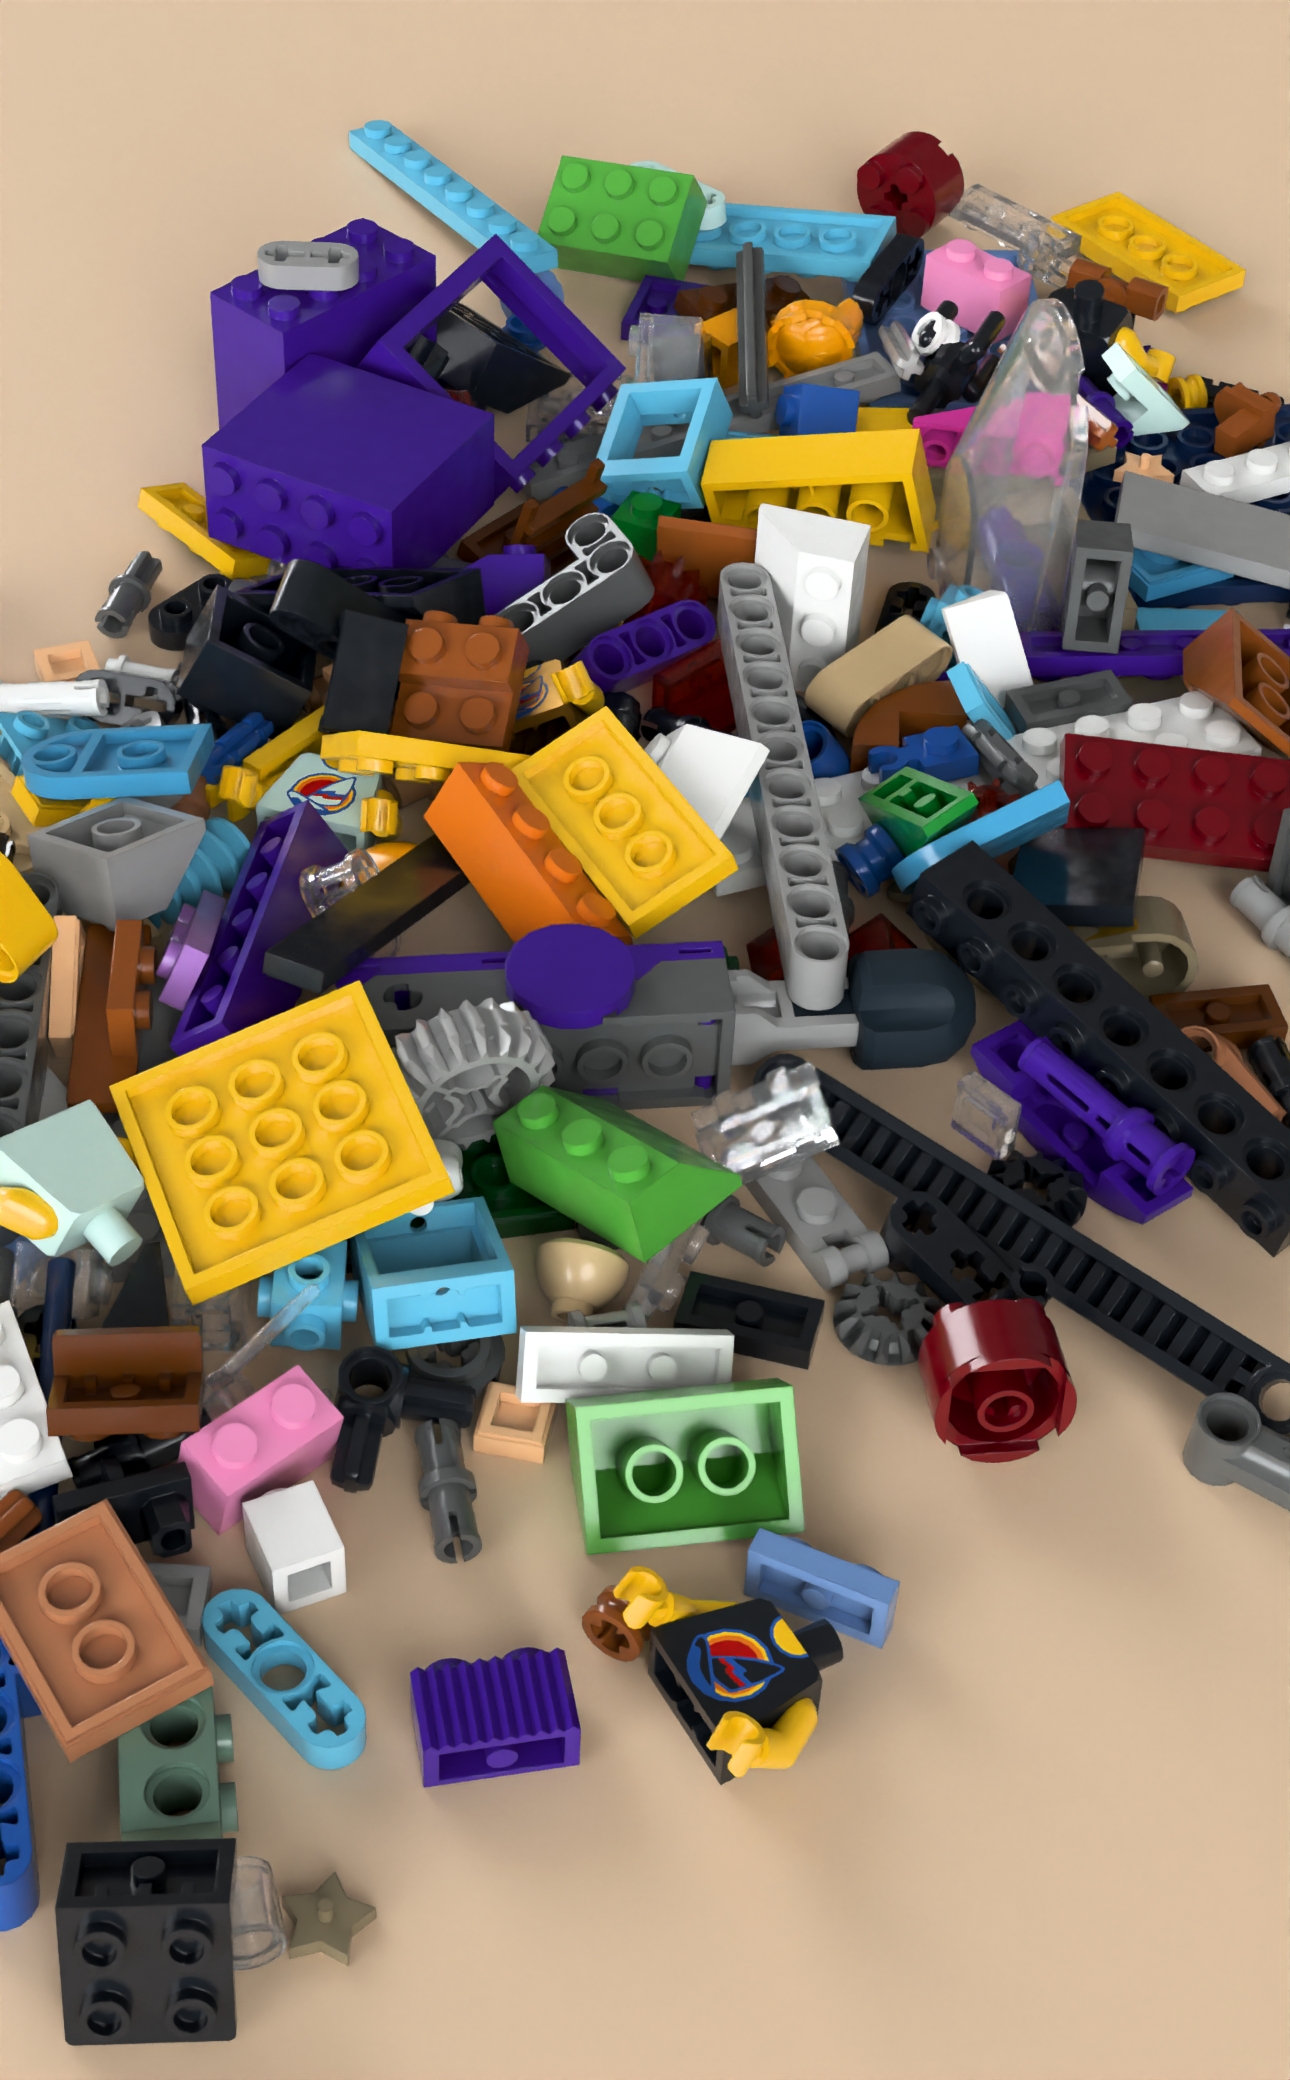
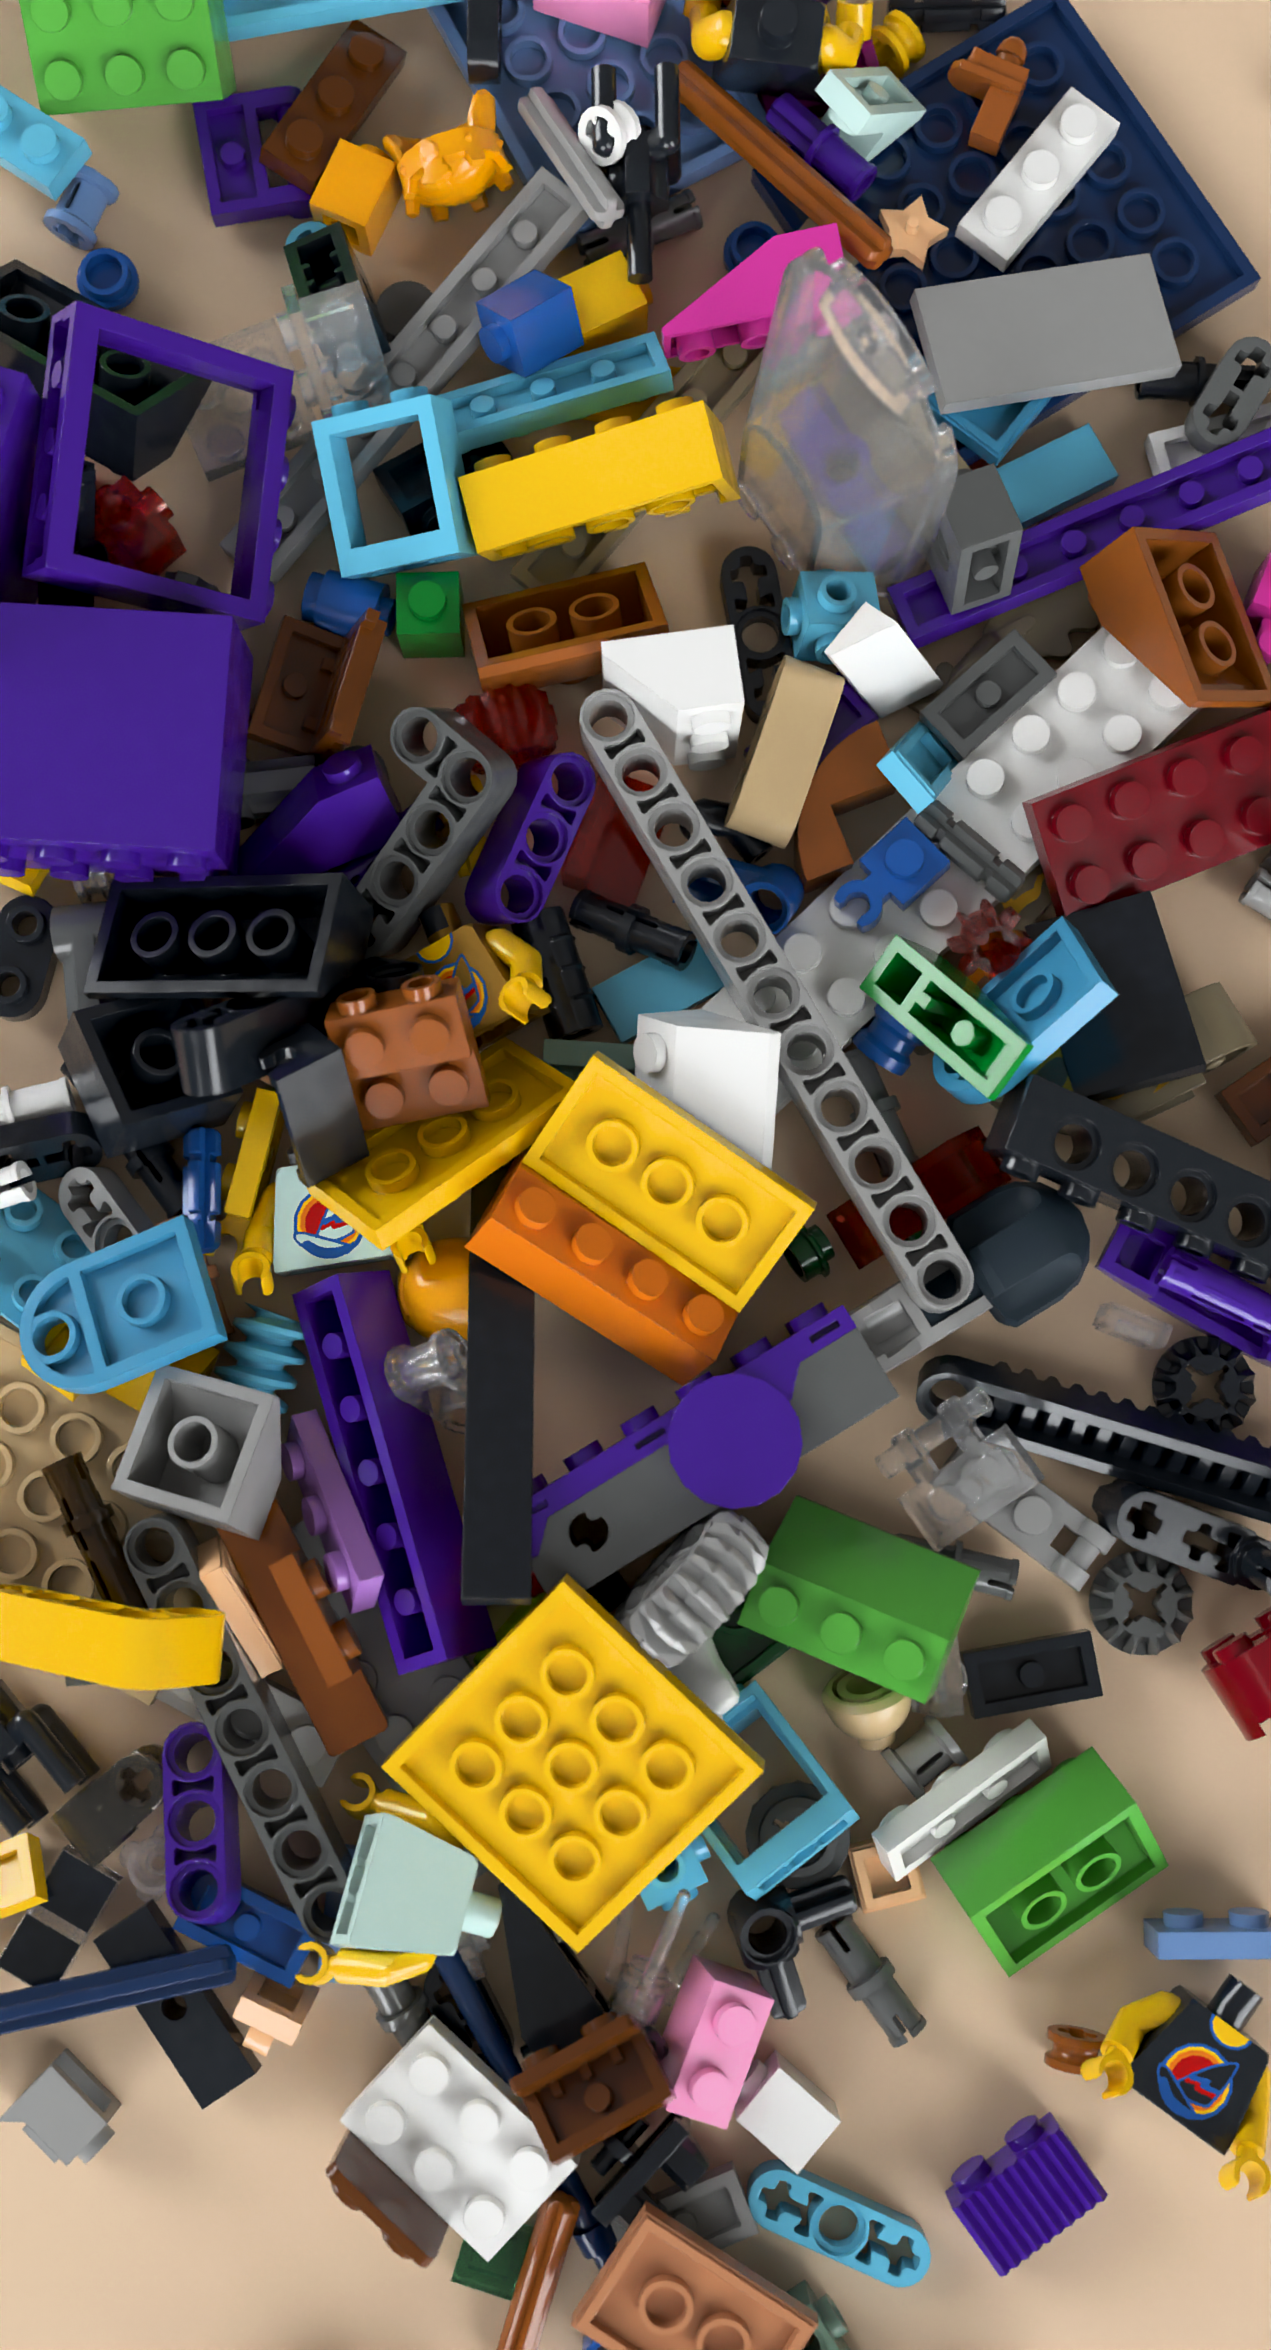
camera: 25 degrees left, 40 degrees up
(752, 331) = (384, 194): dark grey axle -> none

